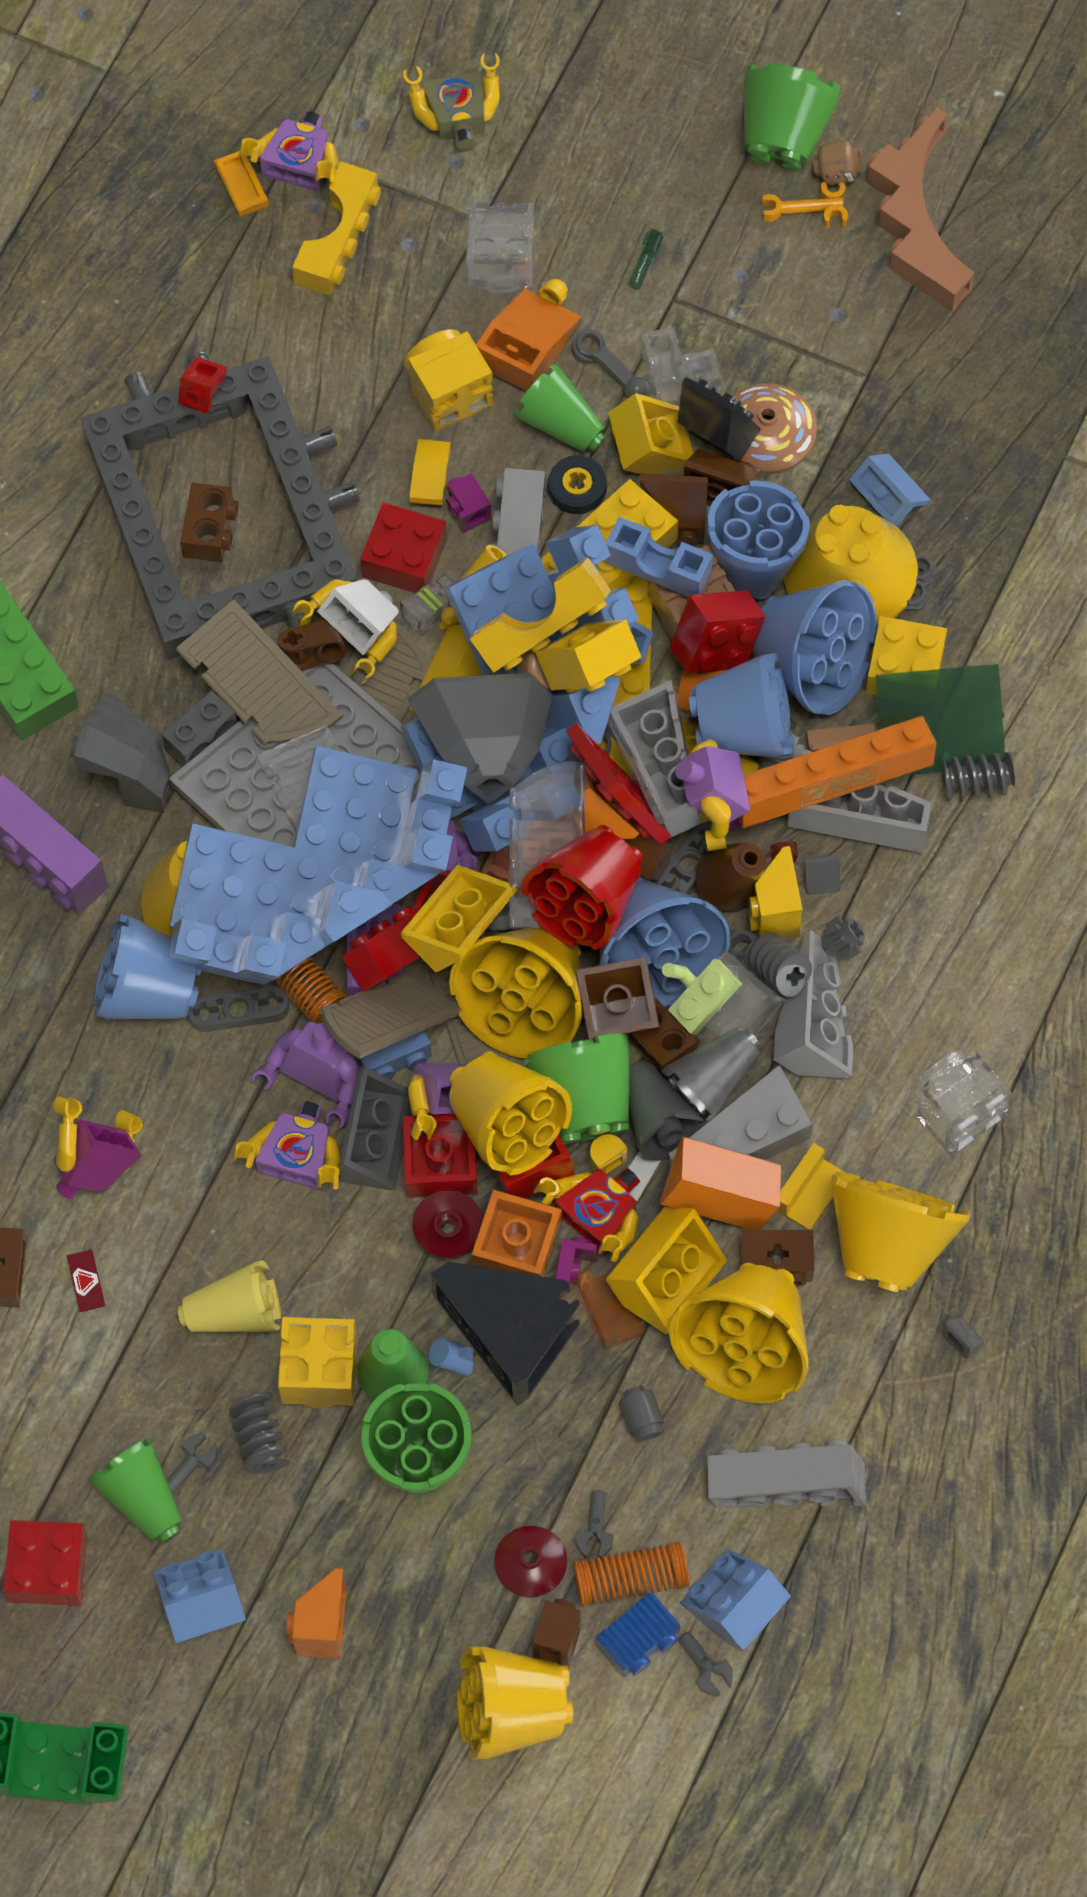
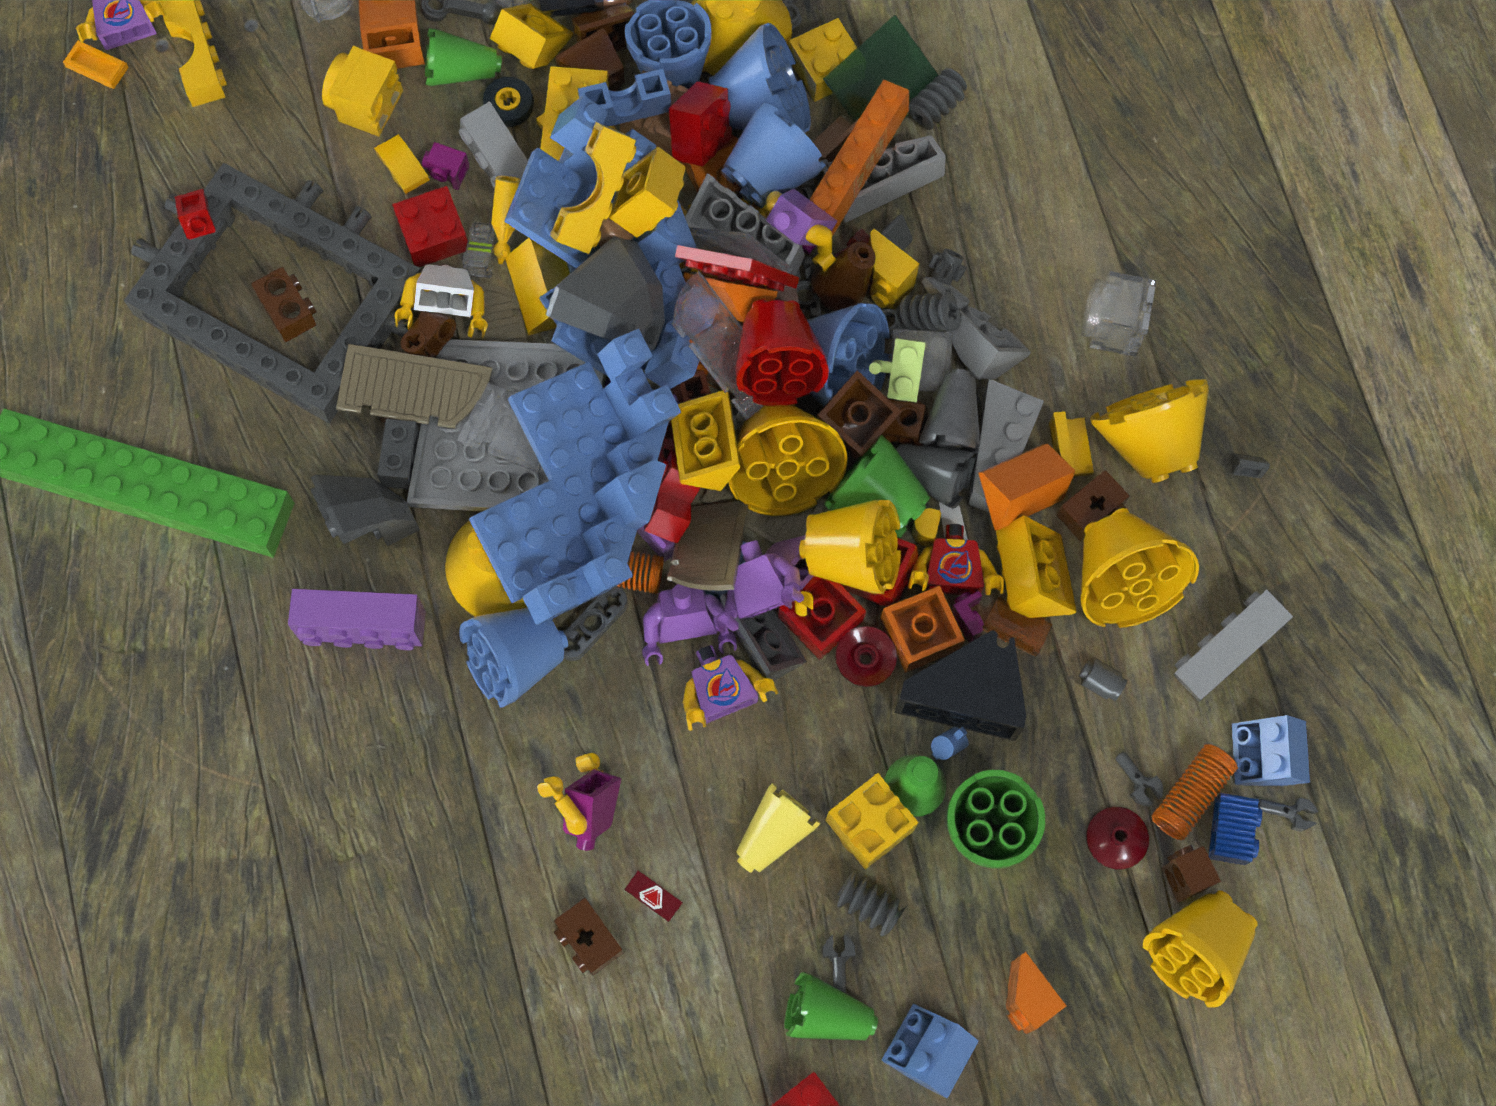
camera: 45 degrees left, 5 degrees up
(393, 1081) = (759, 587): none -> medium lavender torso

